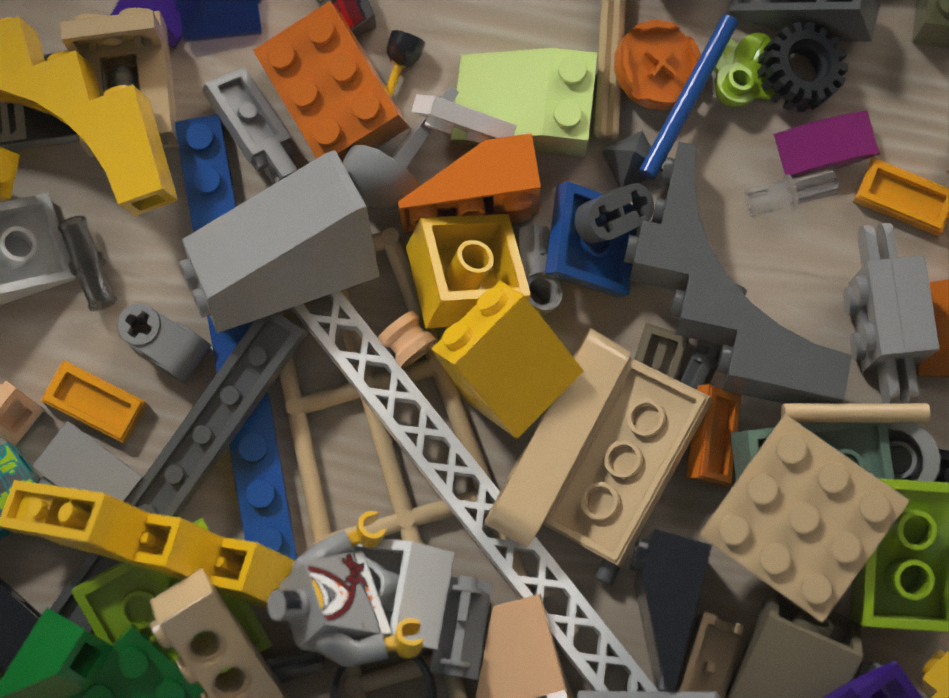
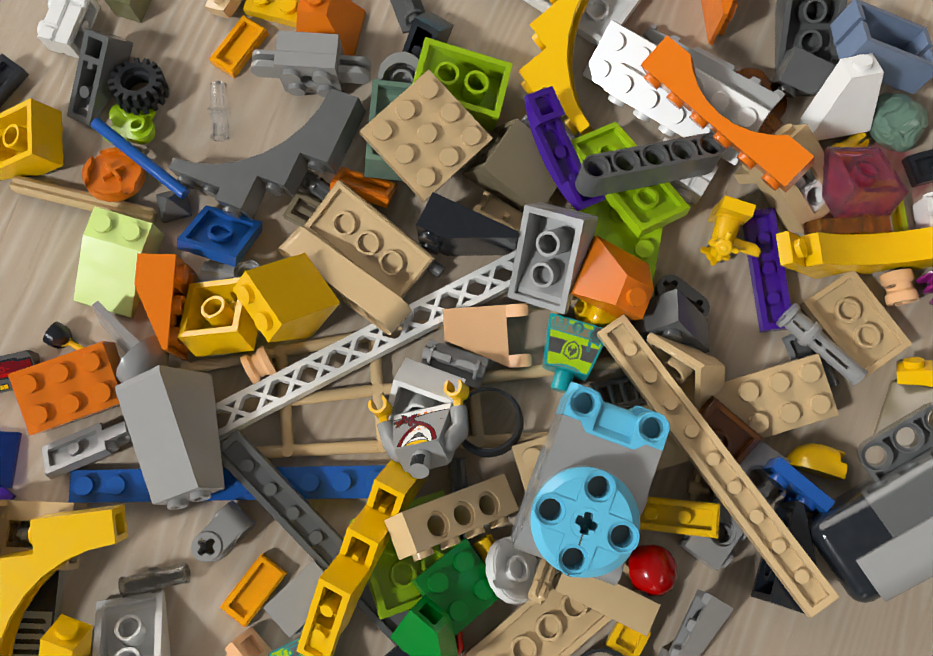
camera: 80 degrees left, 0 degrees up
(444, 115) = (111, 305): white plate -> none
(617, 220) = (200, 217): dark grey beam -> none
(827, 143) = (192, 83): magenta slope -> none
(857, 412) = (367, 92): tan bar -> none

